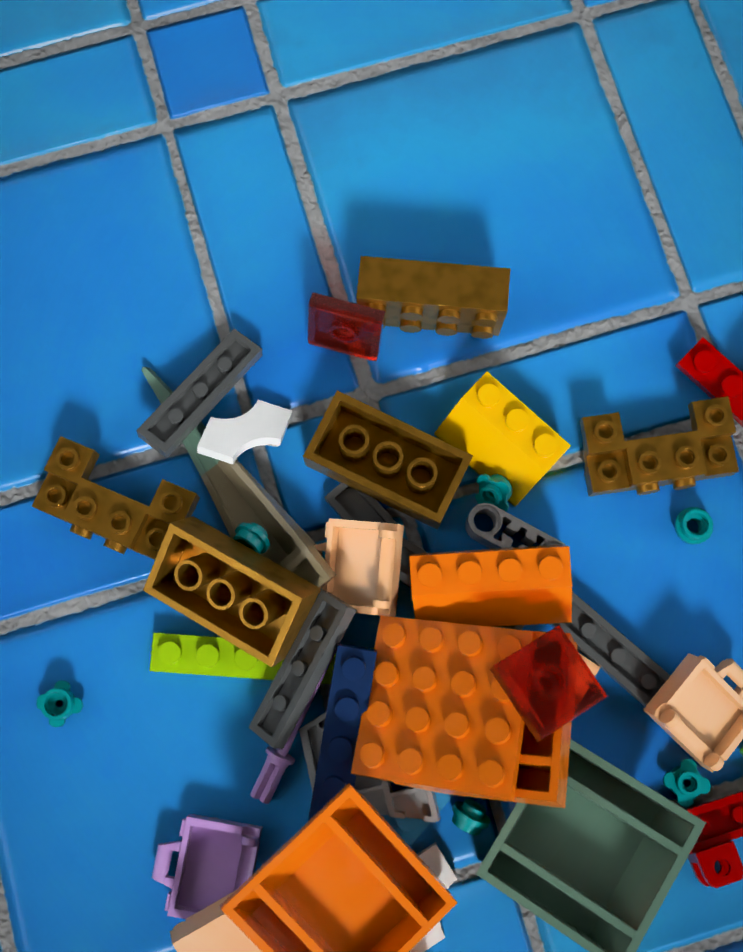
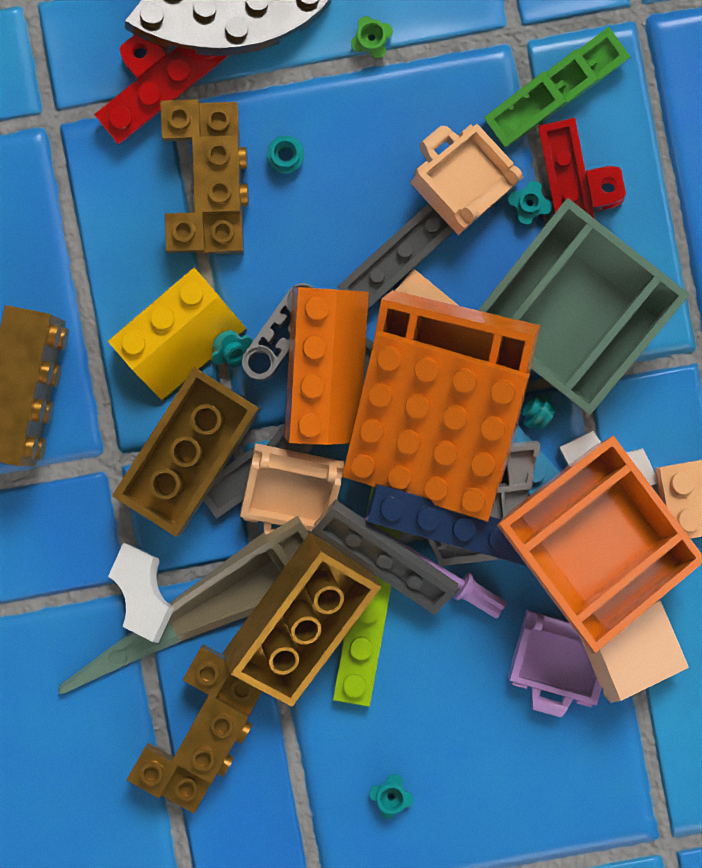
camera: 85 degrees left, 10 degrees up
(199, 393) = (95, 634): dark grey plate -> none
(252, 536) = (250, 594): teal plate -> none
(345, 326) = (43, 480): clear red plate -> none
(548, 683) = (426, 327): clear red plate -> none

